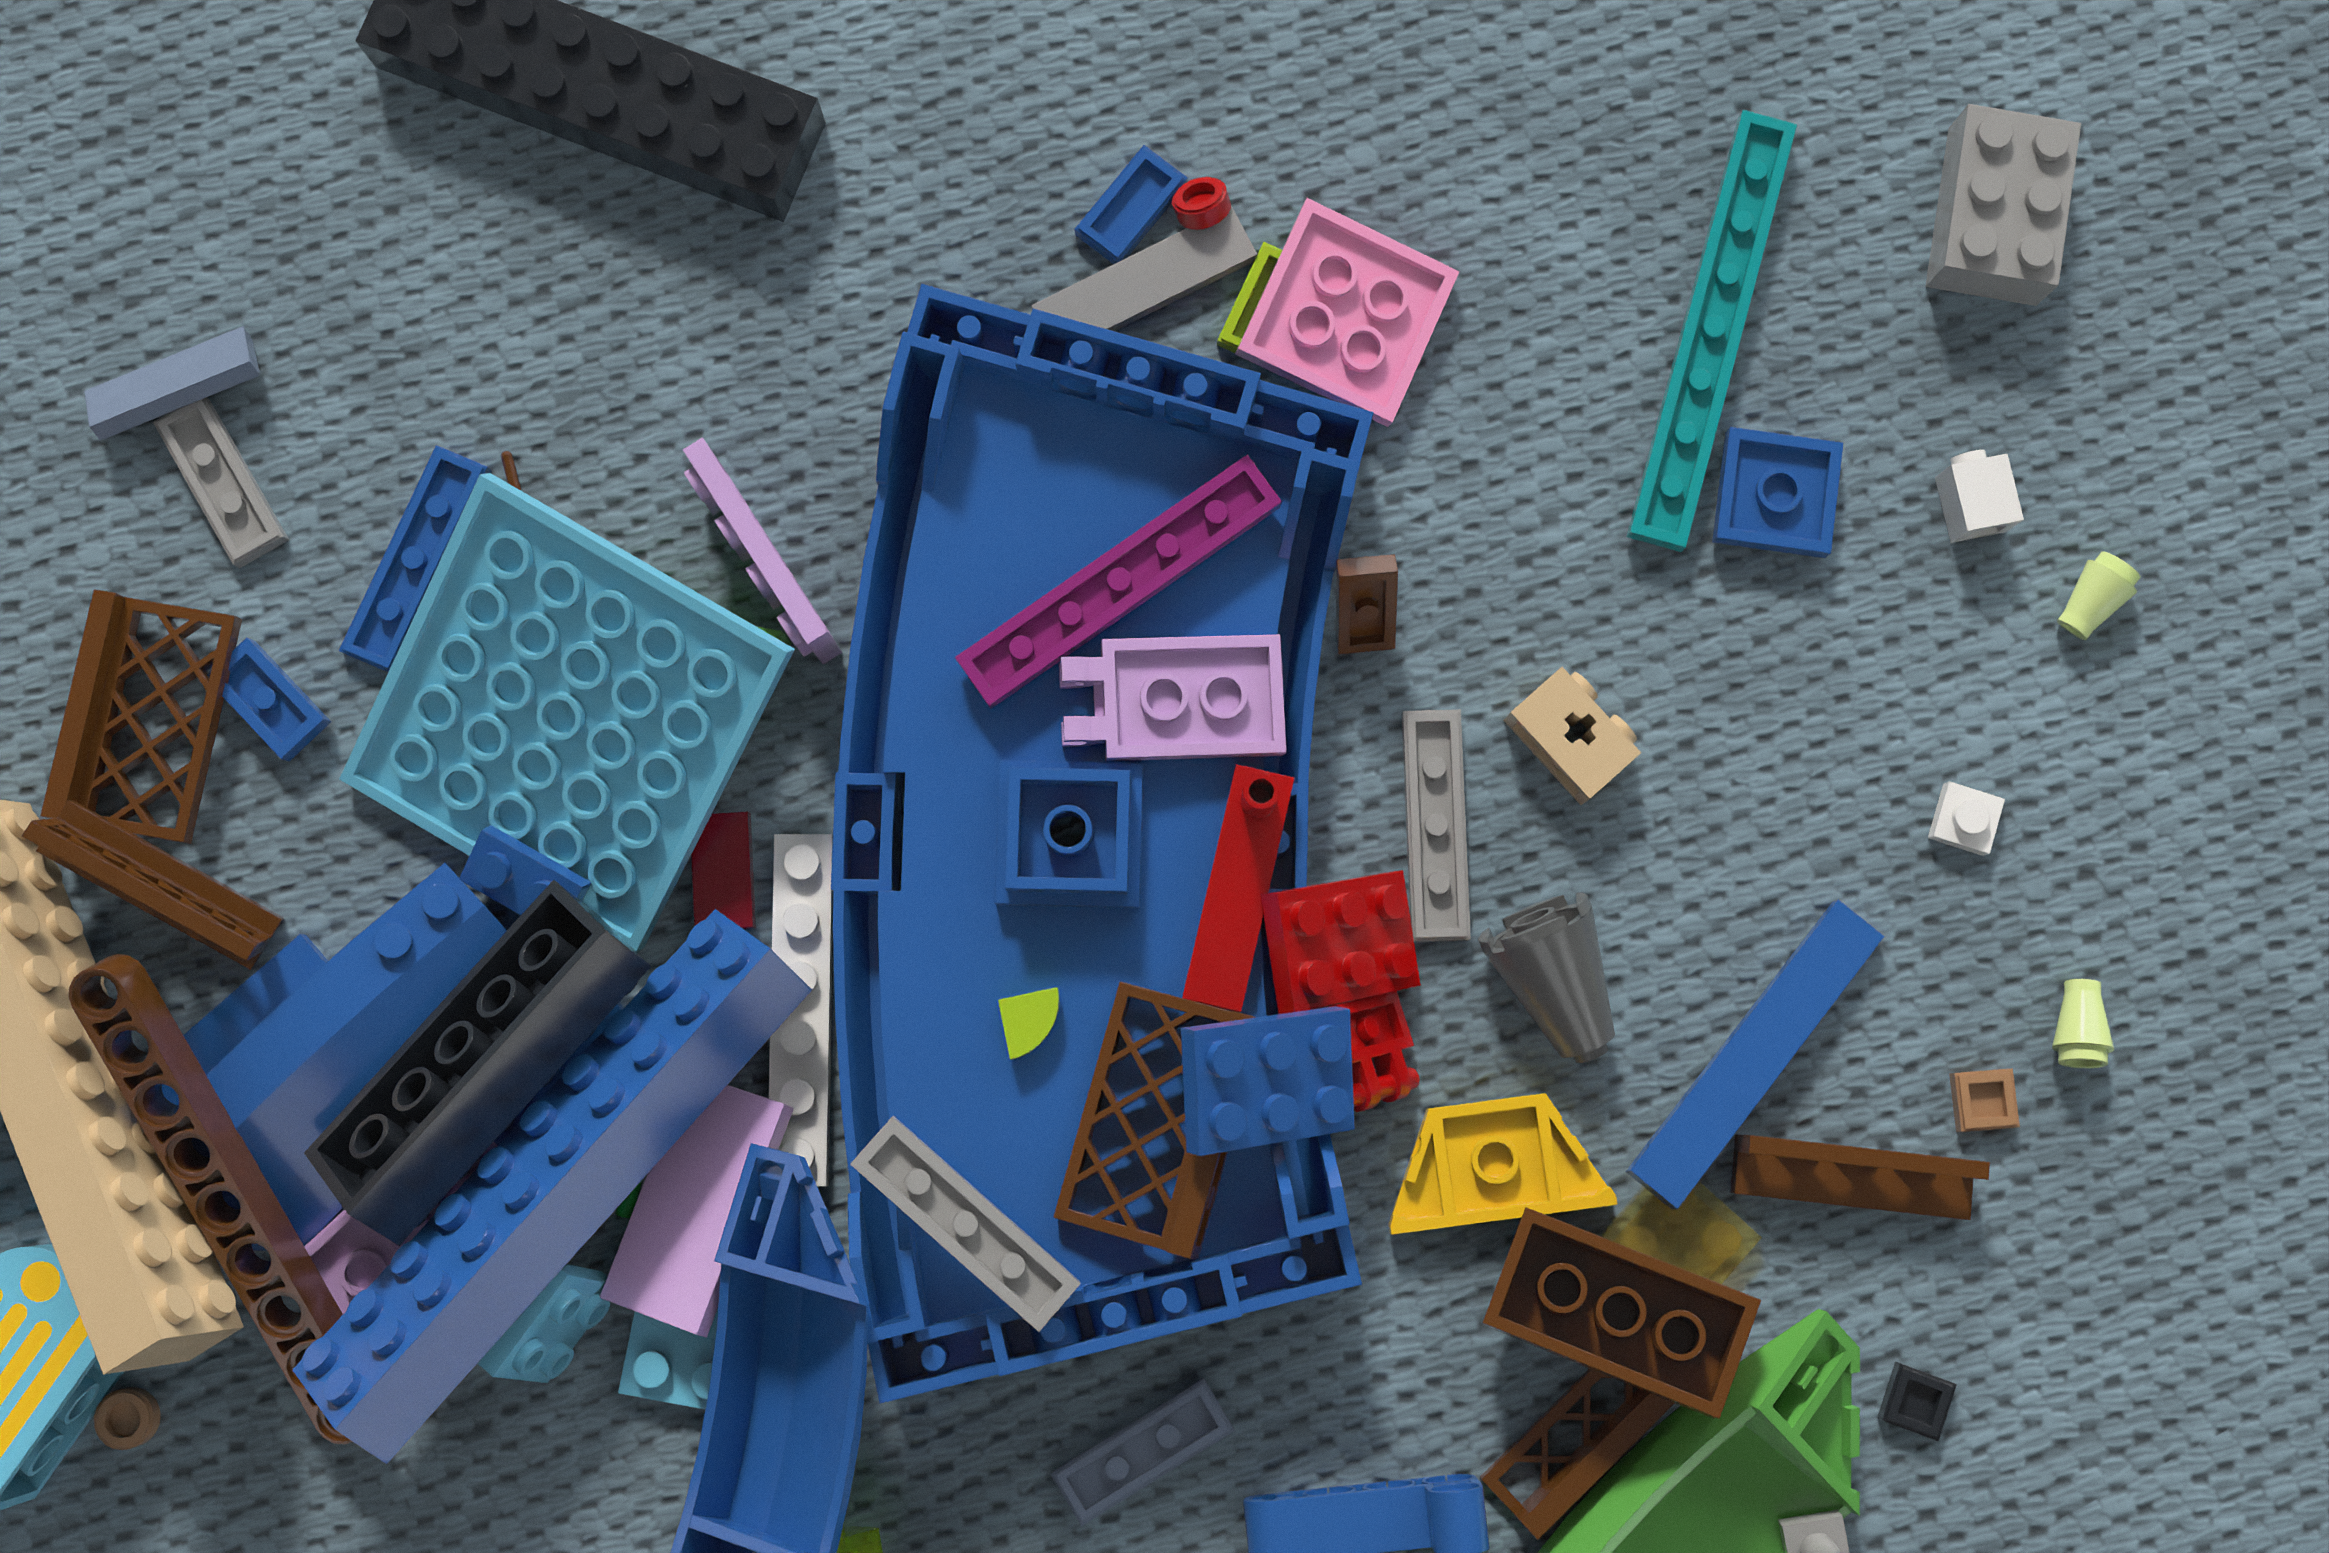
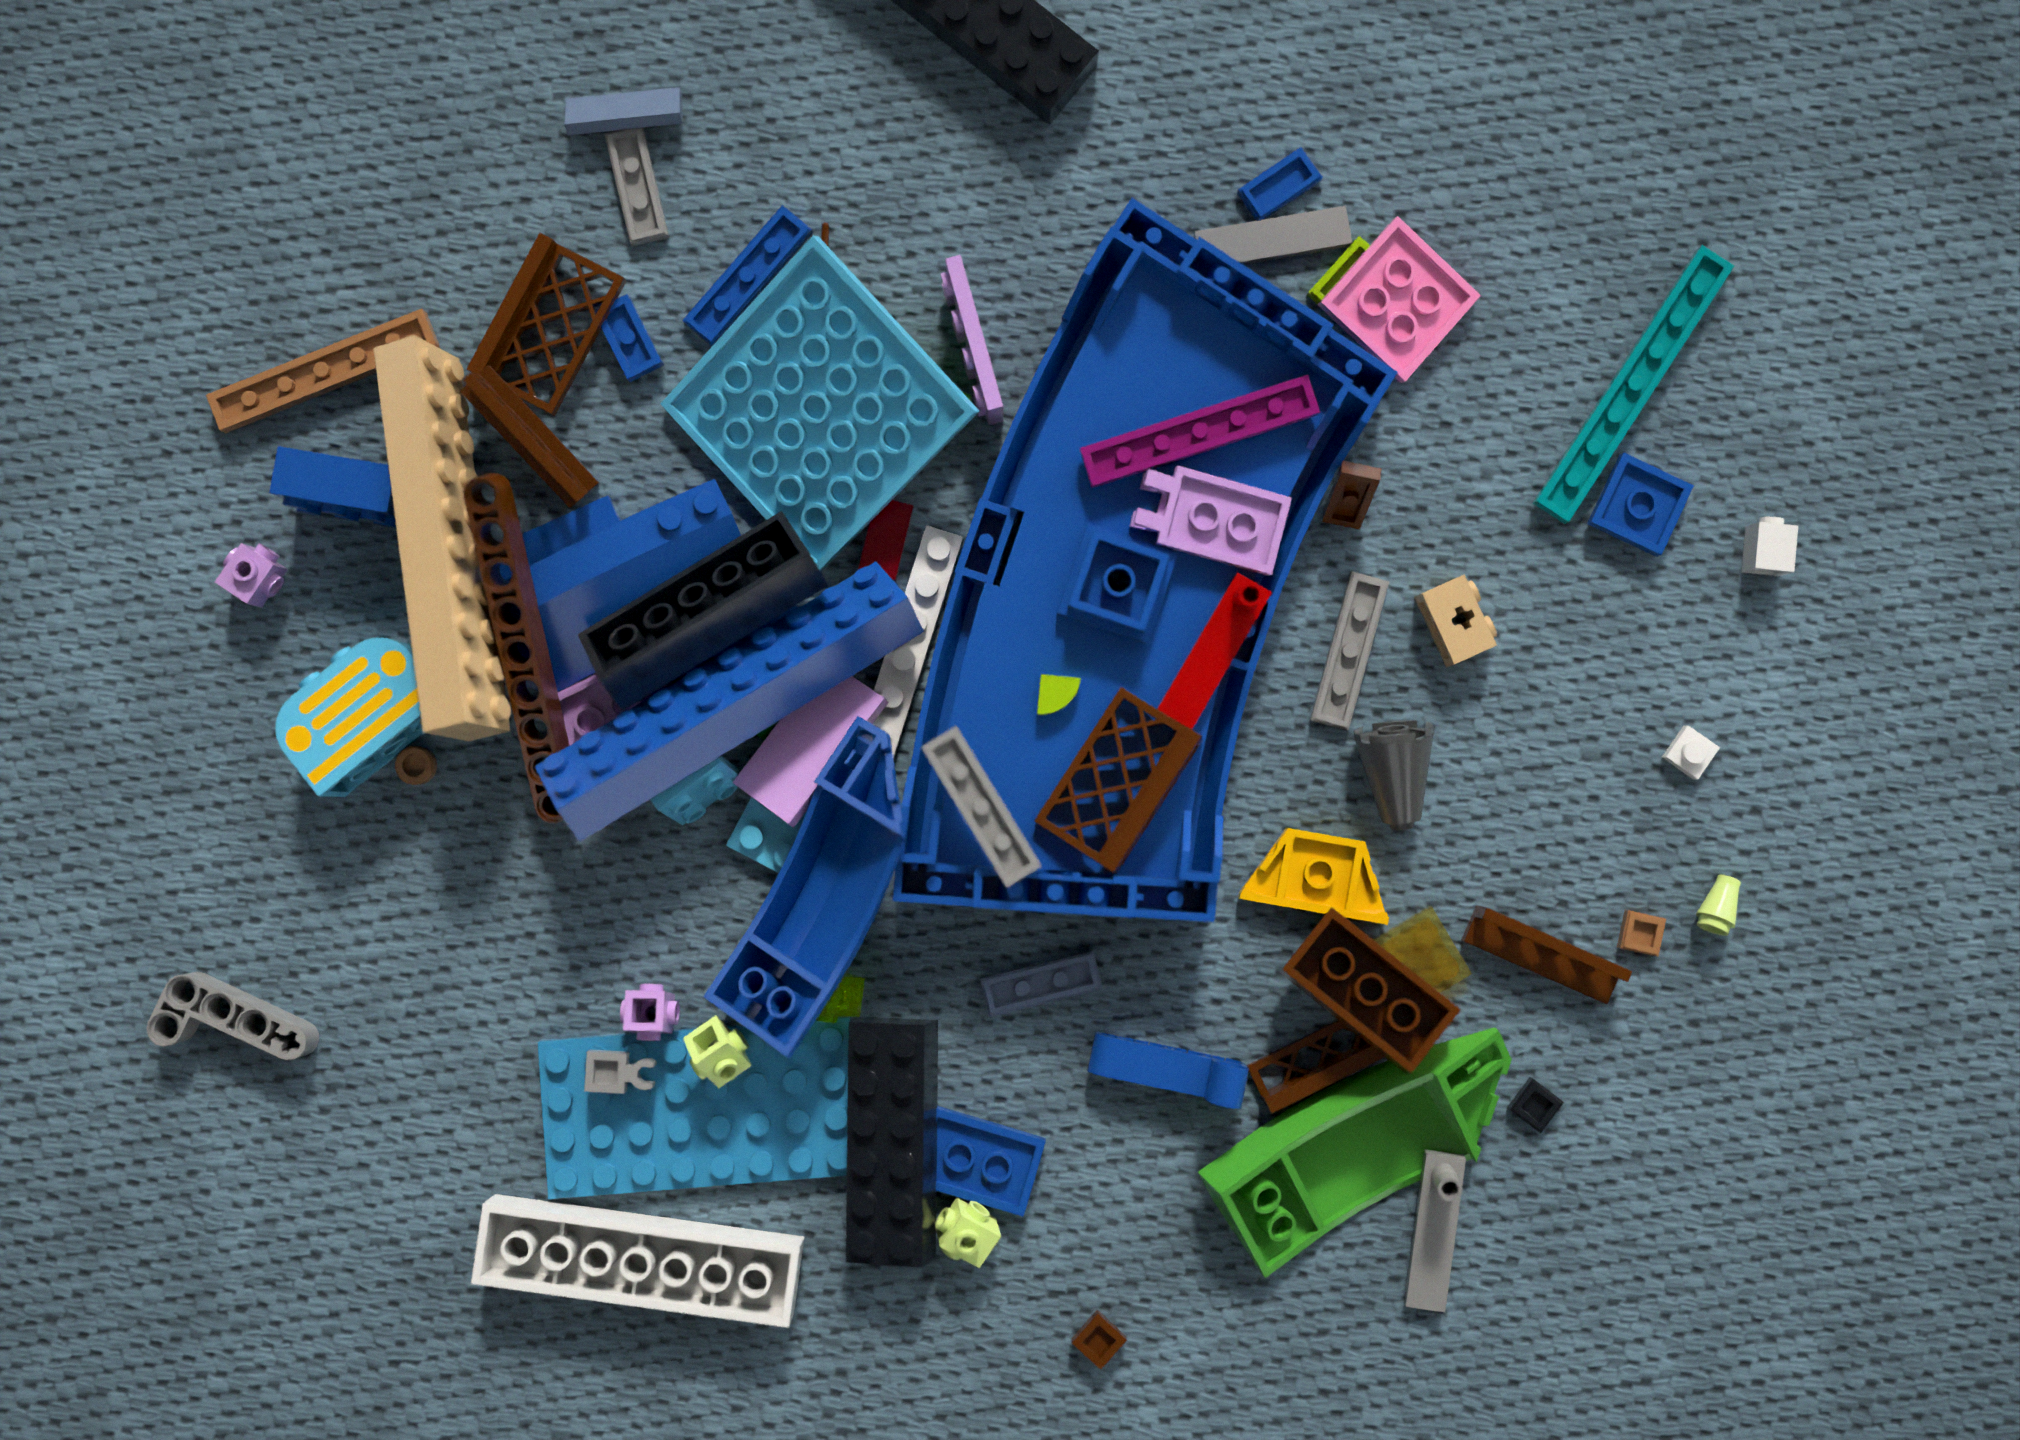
camera: 15 degrees right, 5 degrees up
(515, 872) = (756, 498): blue plate -> none
(1201, 203) = (1326, 197): red tile -> none
(1267, 1080) = (1196, 777): blue plate -> none
(1340, 941) = (1267, 705): red plate -> none
(1379, 1034) = (1263, 774): red plate -> none
(1754, 1055) = (1506, 858): blue tile -> none
(2003, 205) = (1852, 361): light grey brick -> none
(2098, 594) = (1826, 634): yellowish green cone -> none

